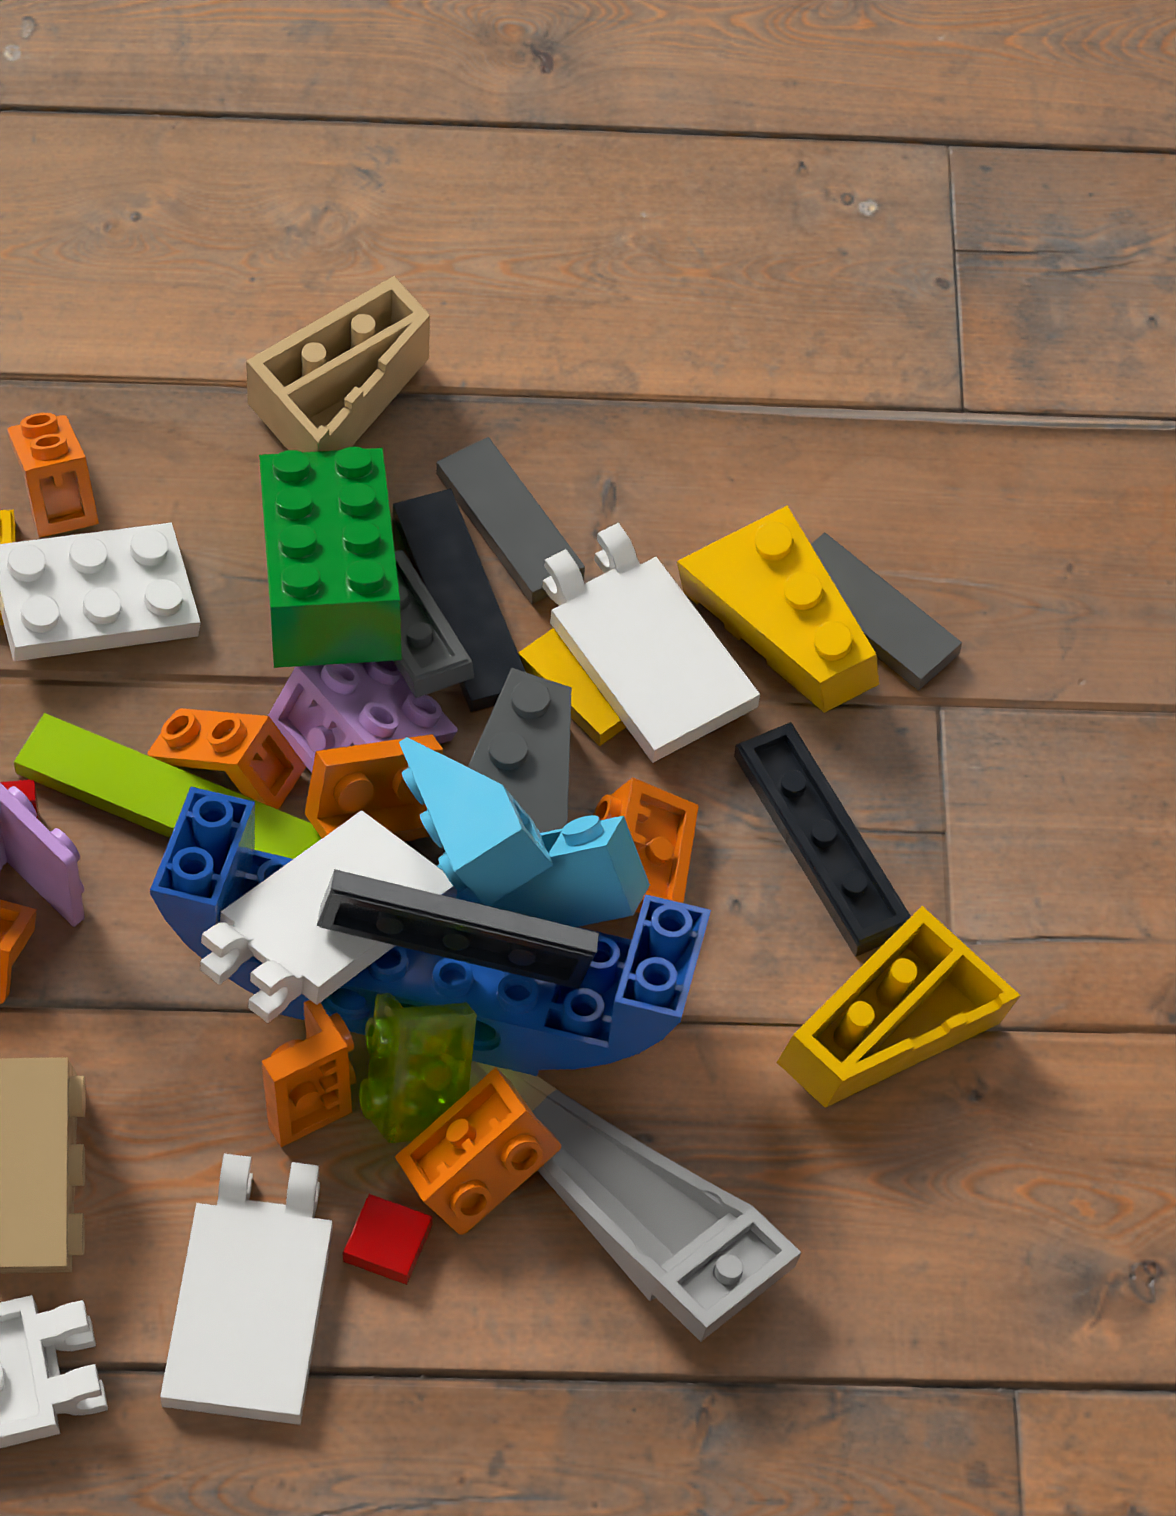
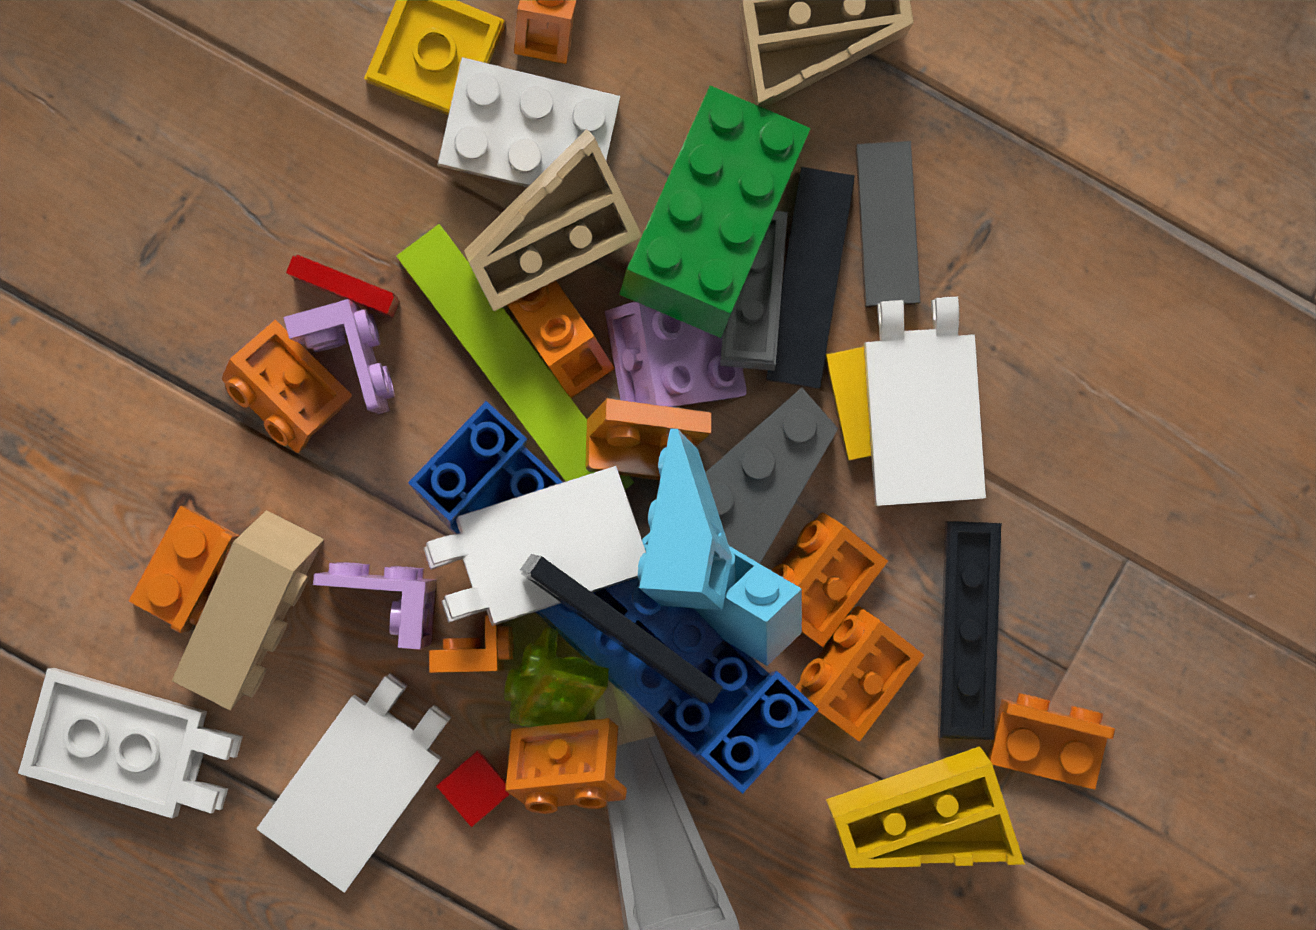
camera: 30 degrees right, 30 degrees up
(173, 635) = (553, 226): none -> tan wedge
(174, 1053) = (409, 617): none -> lavender bracket
(745, 918) = (858, 672): none -> orange bracket
(785, 606) = (1051, 431): yellow wedge -> none
(894, 625) = (1123, 453): dark grey tile -> none
(976, 889) = (1050, 742): none -> orange bracket

